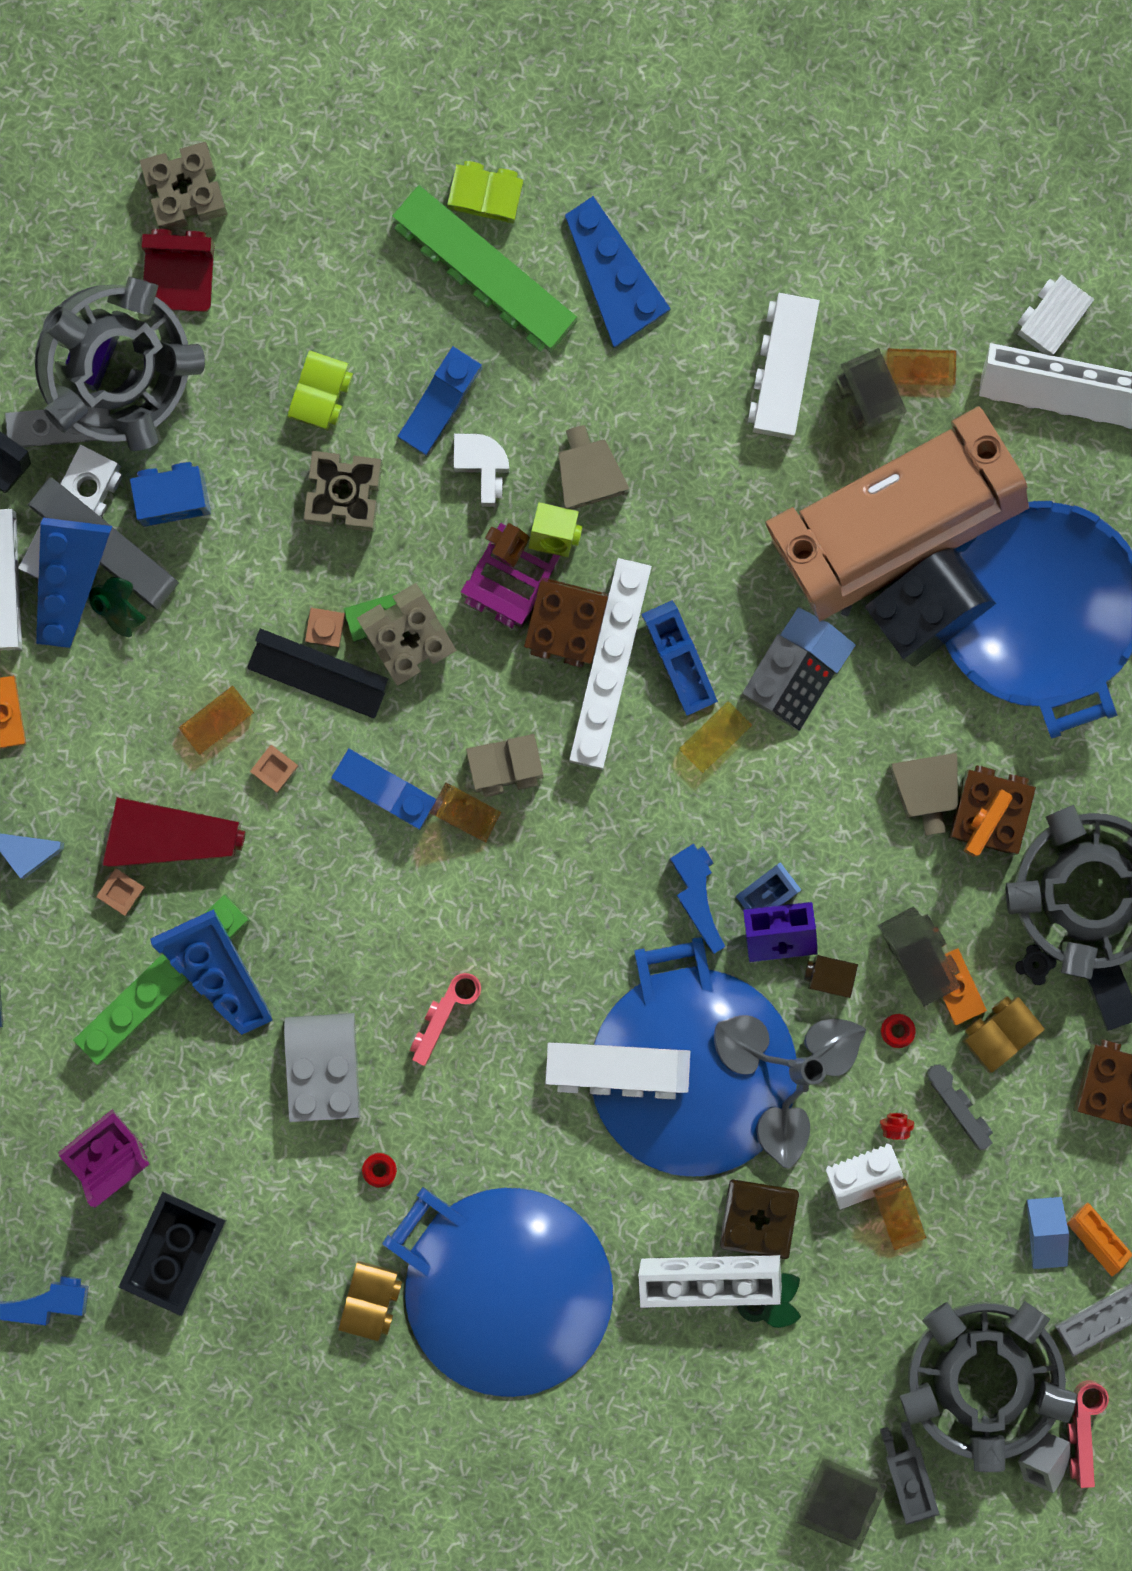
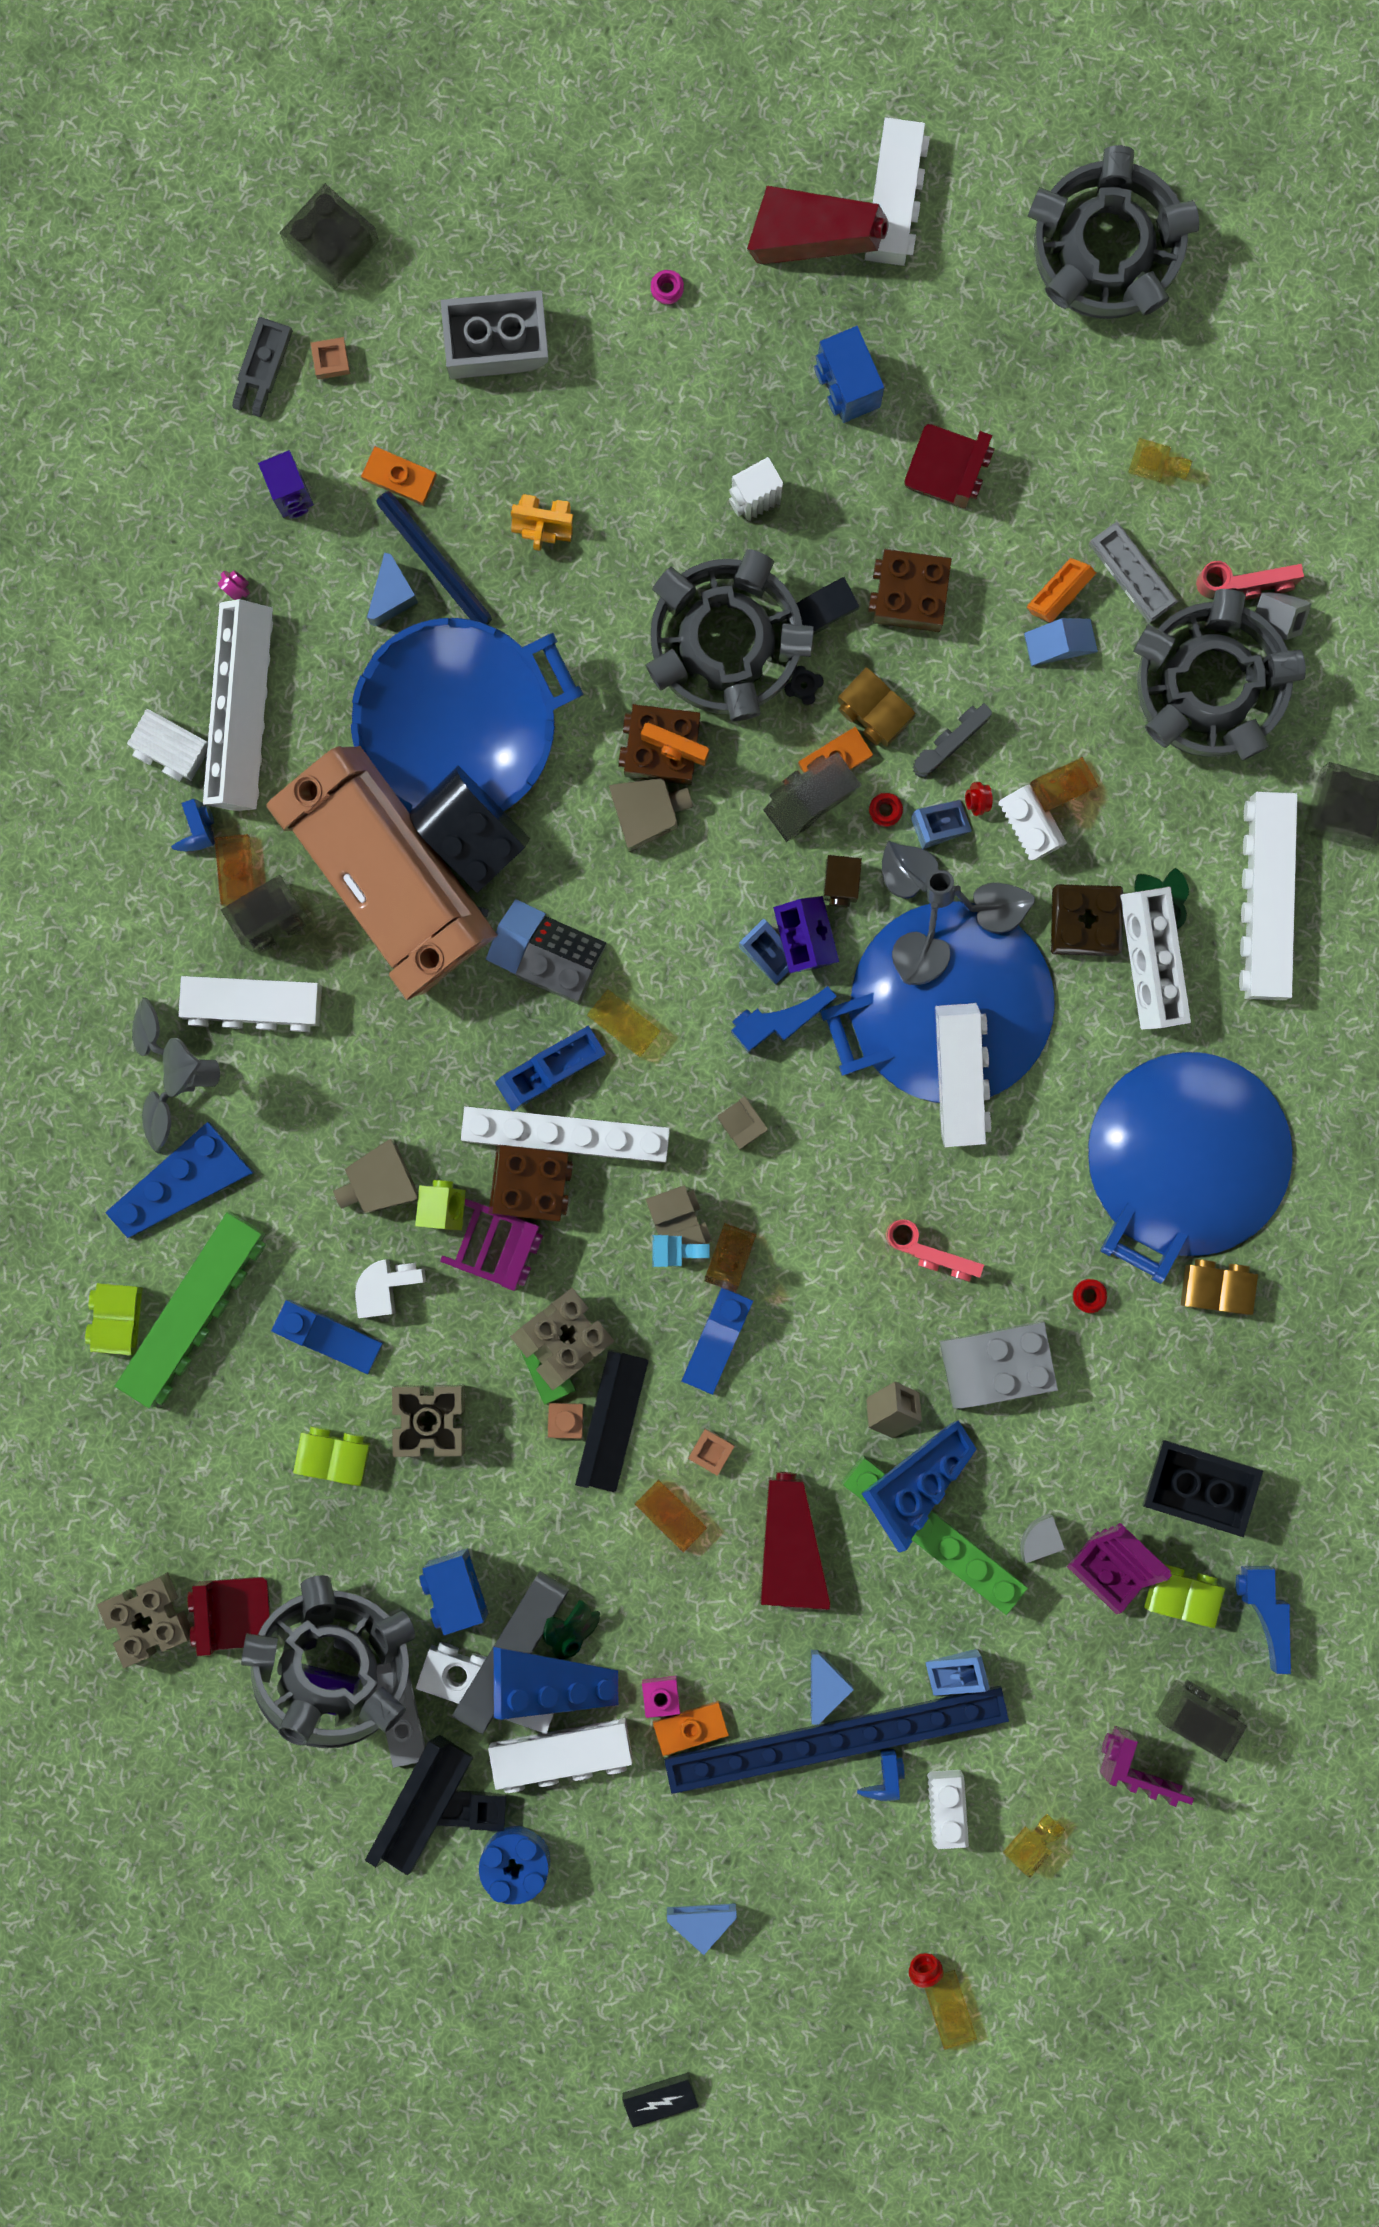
camera: 90 degrees left, 0 degrees up
(20, 984) = (958, 1674): none -> medium blue slope
(47, 695) = (665, 1685): none -> dark pink plate
(66, 1224) = (1187, 1597): none -> lime brick
(120, 892) = (852, 1587): nougat plate -> none
(142, 1086) = (1040, 1539): none -> light grey brick
(291, 957) = (894, 1410): none -> dark tan panel
(478, 750) = (670, 1250): none -> medium azure piece
(508, 543) = (460, 1250): reddish brown tile -> none
(598, 843) = (742, 1123): none -> dark tan panel
(723, 288) = (181, 1073): none -> dark grey plant
(759, 1408) = (1269, 896): none -> white brick
(877, 1085) = (940, 823): none -> medium blue slope
(910, 1477) = (1314, 743): dark grey hinge -> none
(975, 338) = (200, 822): none -> blue plate

